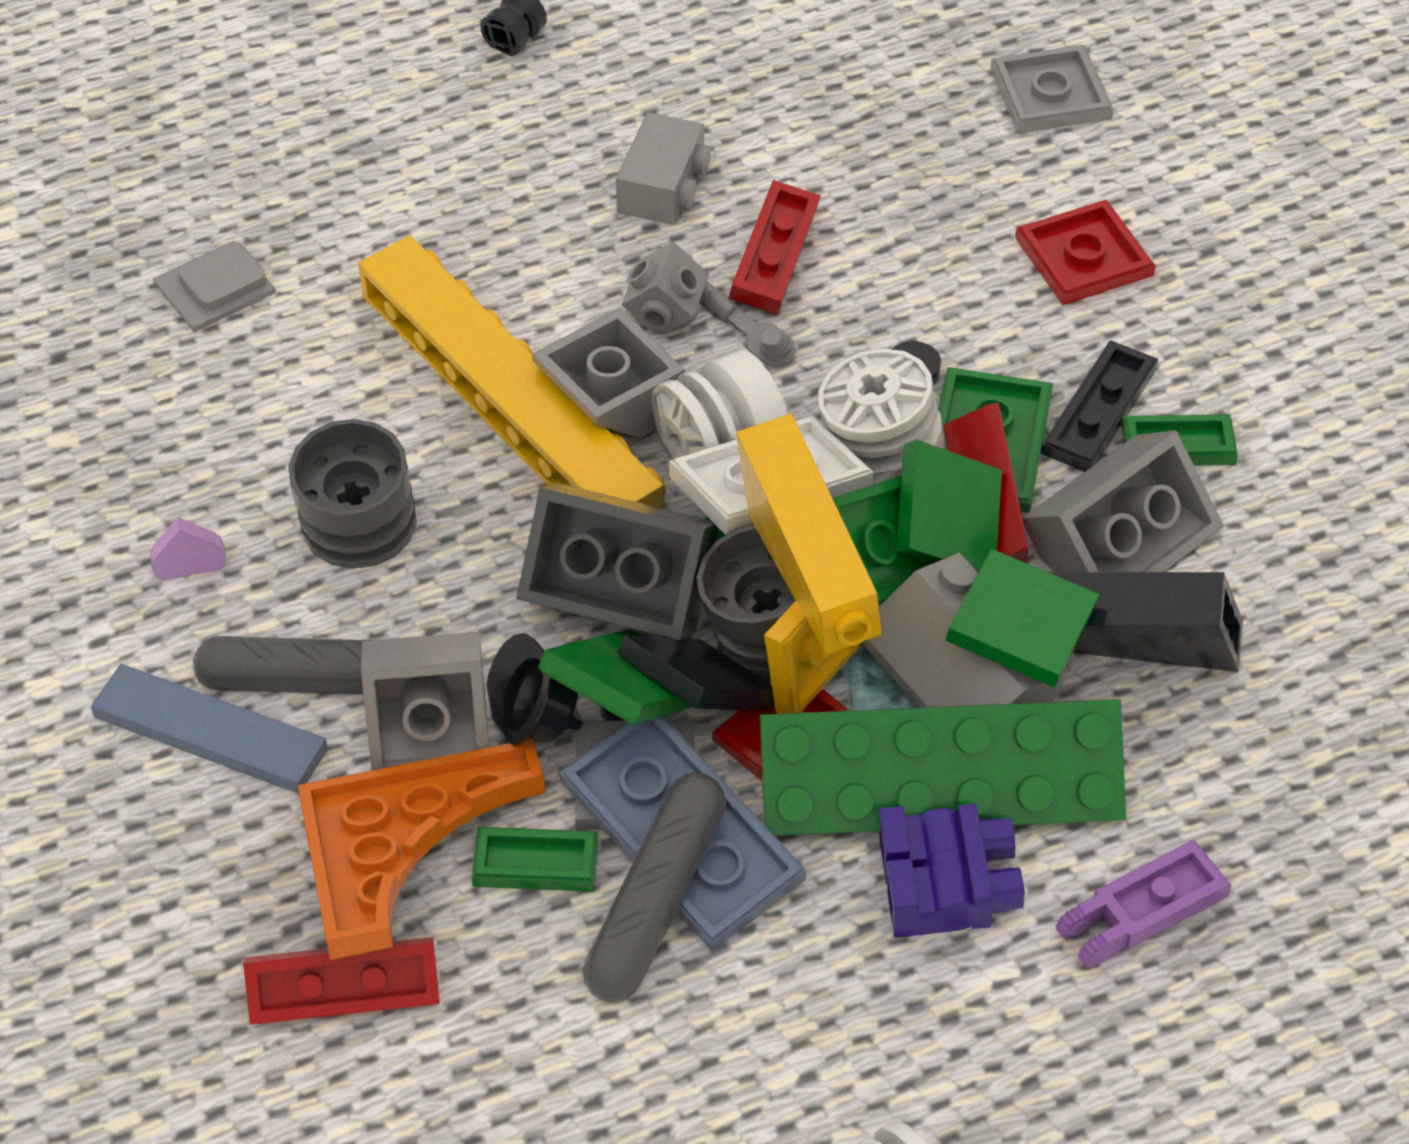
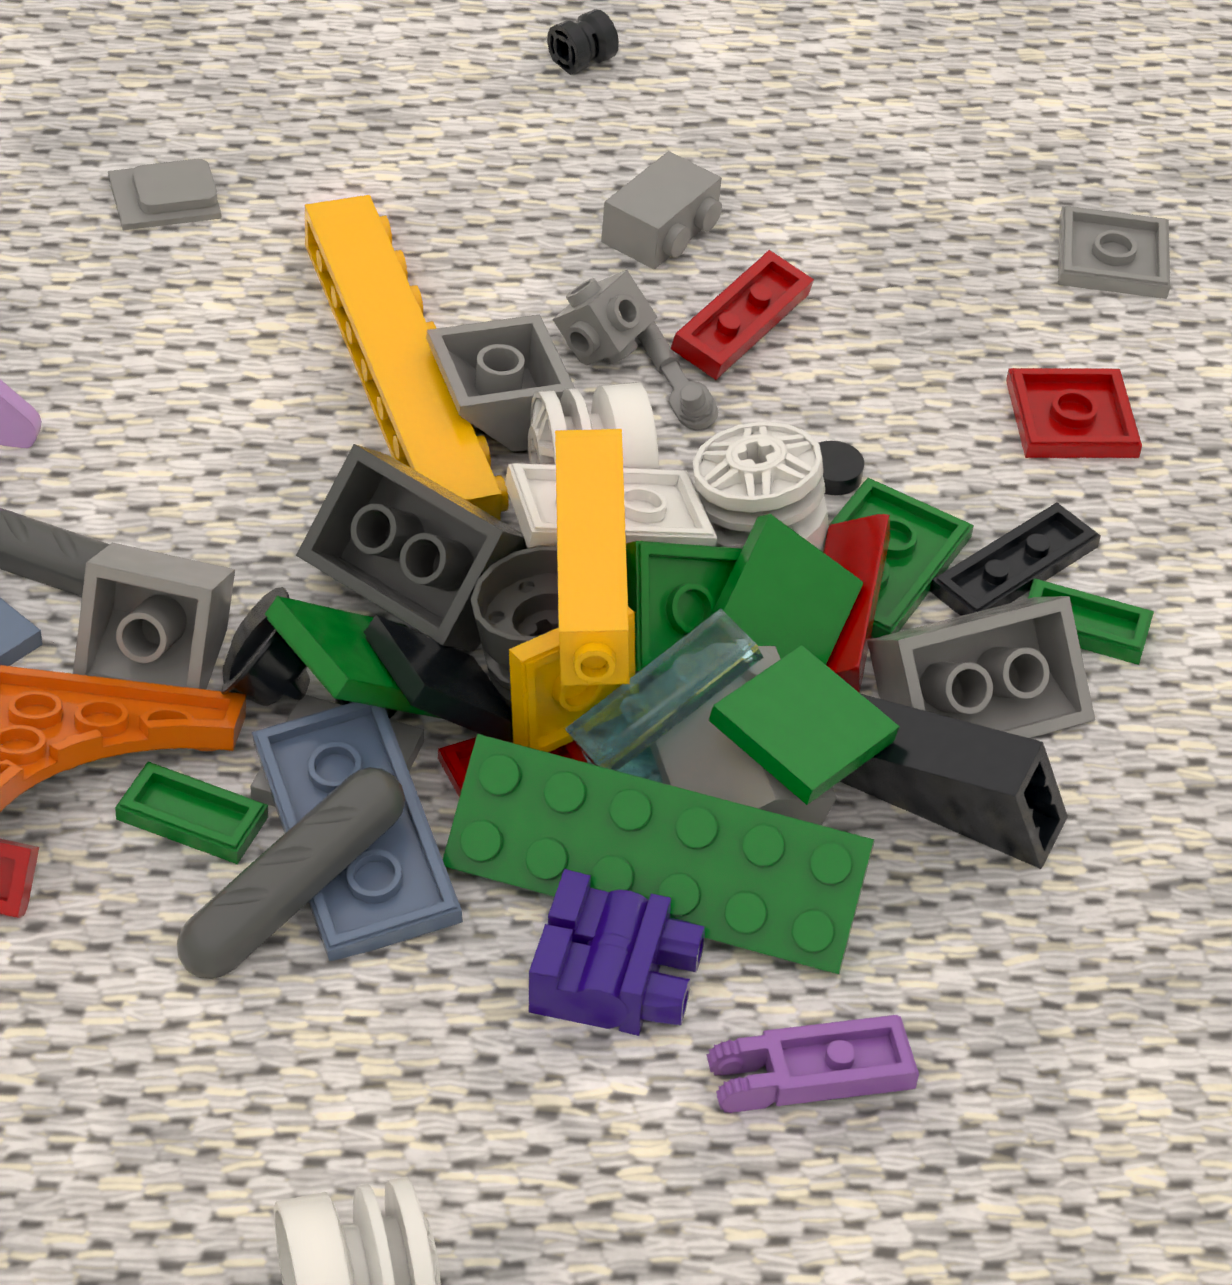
camera: 15 degrees right, 5 degrees down
(353, 493) = (183, 409): dark grey wheel -> none
(906, 605) = (664, 692): none -> clear light blue tile

